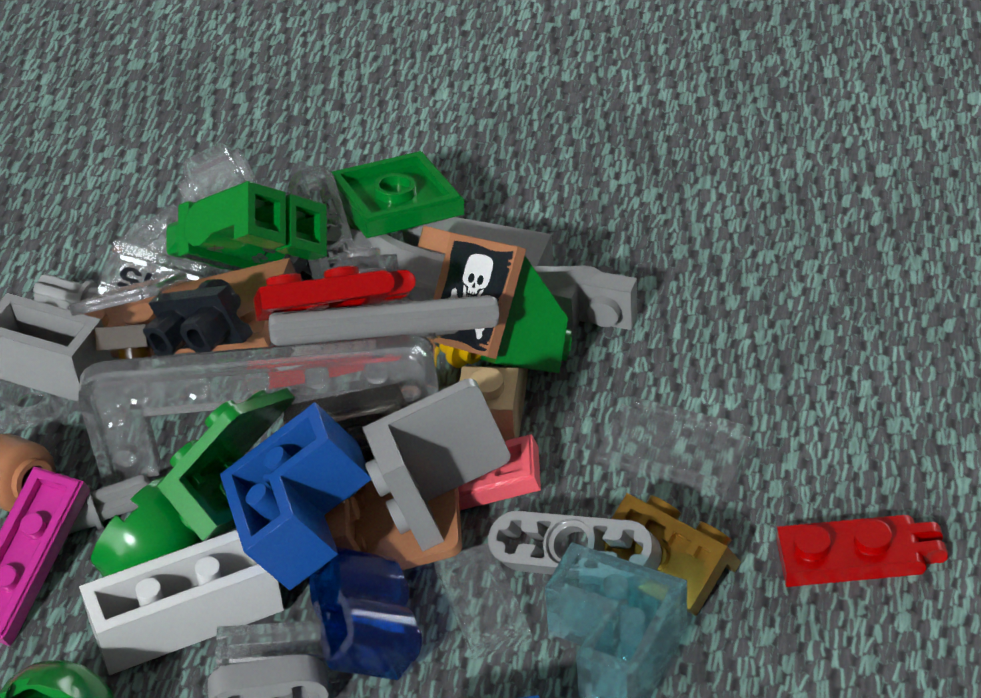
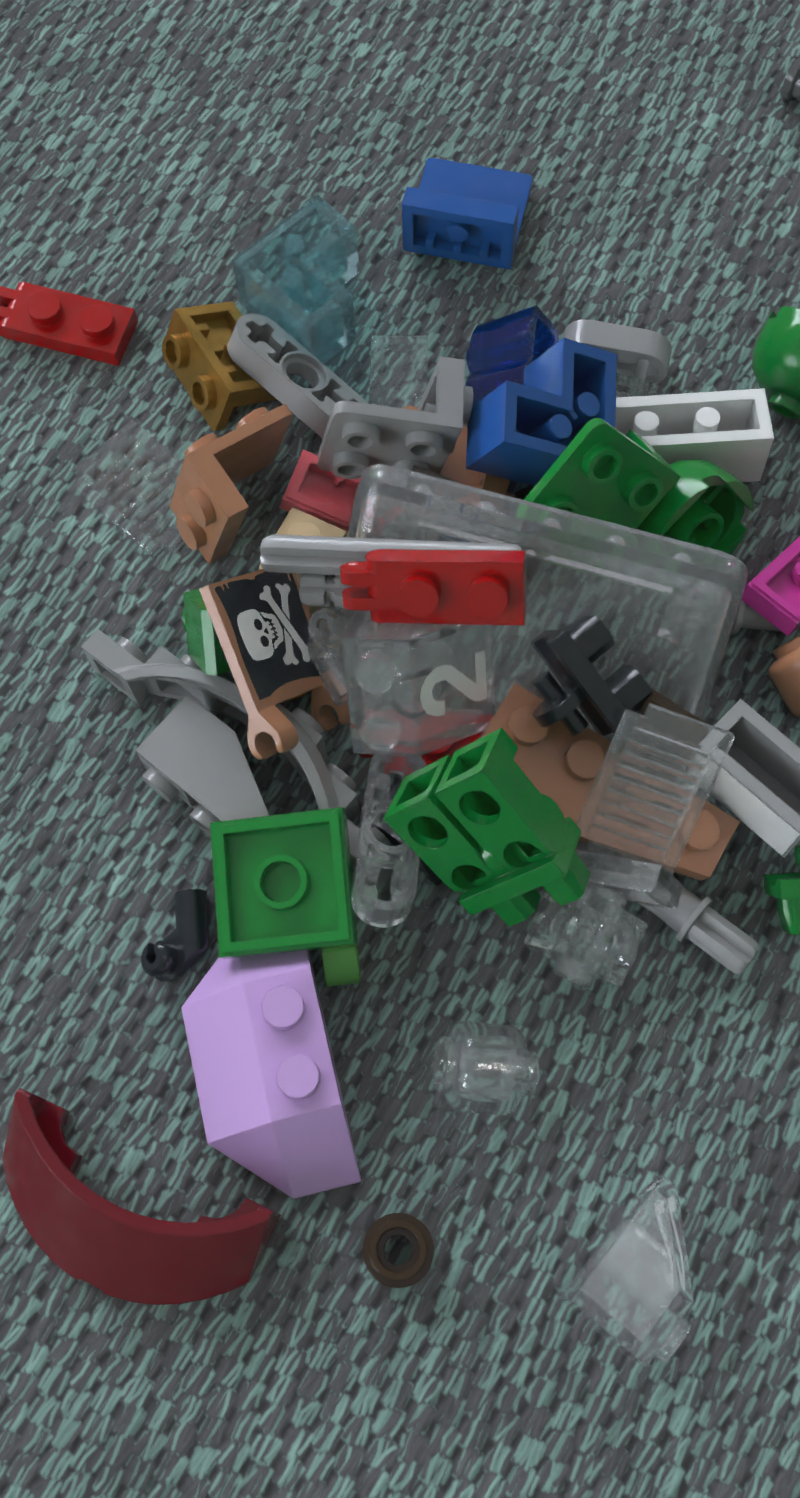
camera: 160 degrees left, 25 degrees up
(90, 102) = (639, 1278): none -> clear slope
(245, 99) = (374, 1250): none -> dark brown plate
(359, 130) = (270, 1073): none -> lavender wedge
(423, 52) = (112, 1246): none -> dark red windscreen
(467, 179) = (186, 944): none -> black arm
(590, 422) = (205, 494): none -> nougat bracket

